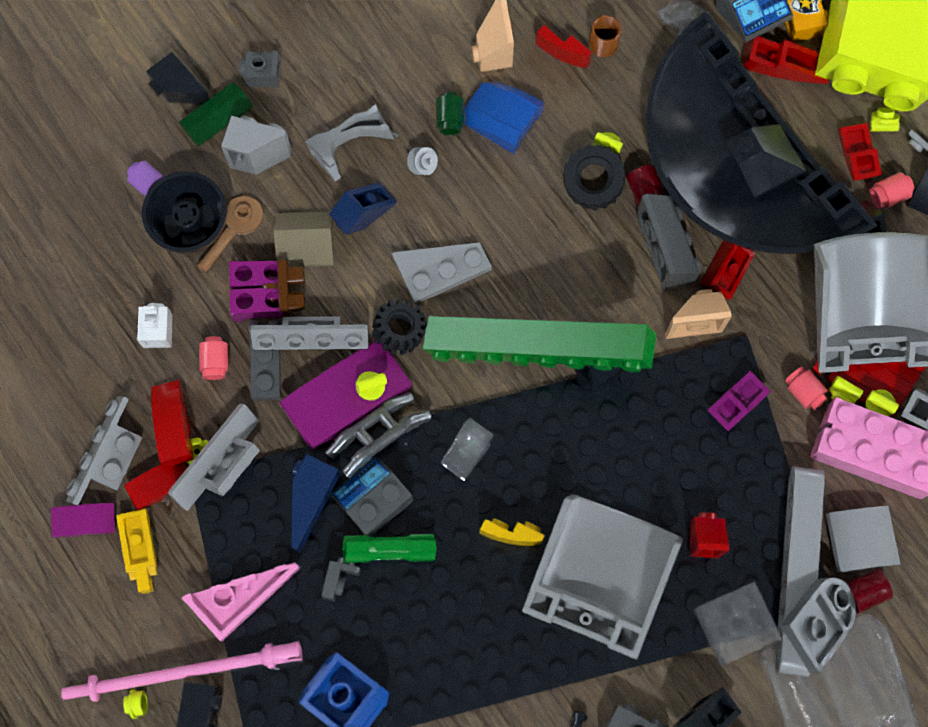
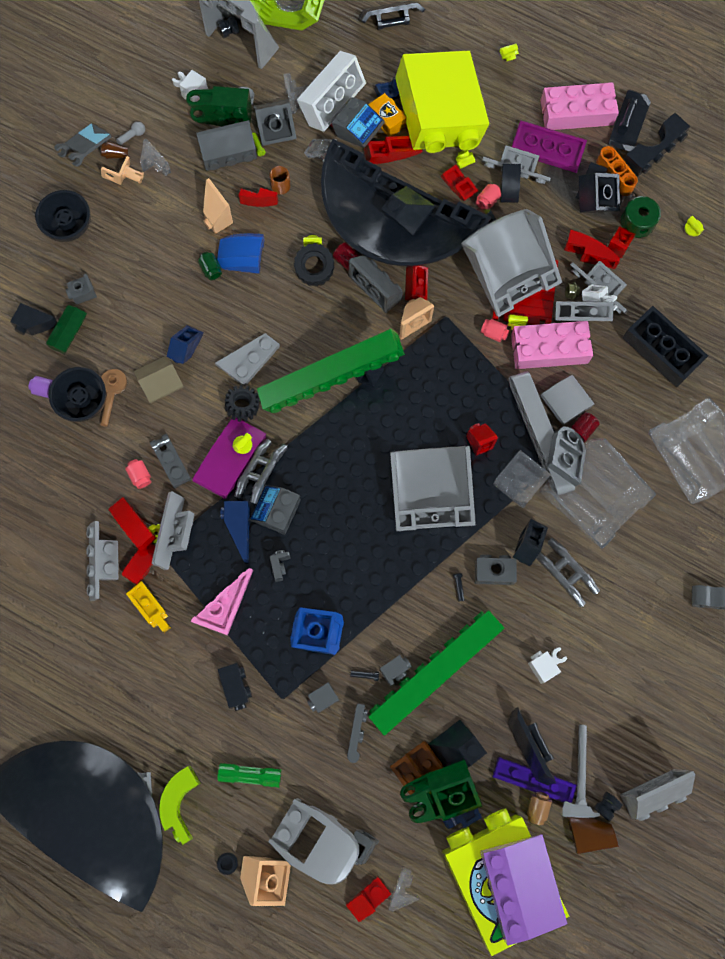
camera: 30 degrees left, 0 degrees up
(82, 520) = (105, 606): magenta slope -> none
(136, 703) = (193, 697): neon yellow plate -> none
(155, 326) = (92, 471): white brick -> none
(254, 145) = (101, 335): light grey slope -> none
(262, 289) = (148, 419): magenta hips -> none
(268, 656) = (259, 630): bright pink bar -> none
(309, 334) = (190, 432): light grey bracket -> none
(361, 124) = (161, 294): light grey animal -> none
(366, 548) = (312, 527): green axle -> none
(422, 160) = (207, 300): light grey wheel -> none
(467, 449) = (318, 454): clear slope -> none
(522, 535) = (375, 488): yellow slope -> none
(739, 401) = (460, 354): magenta slope -> none
(881, 402) = (540, 317): neon yellow plate -> none

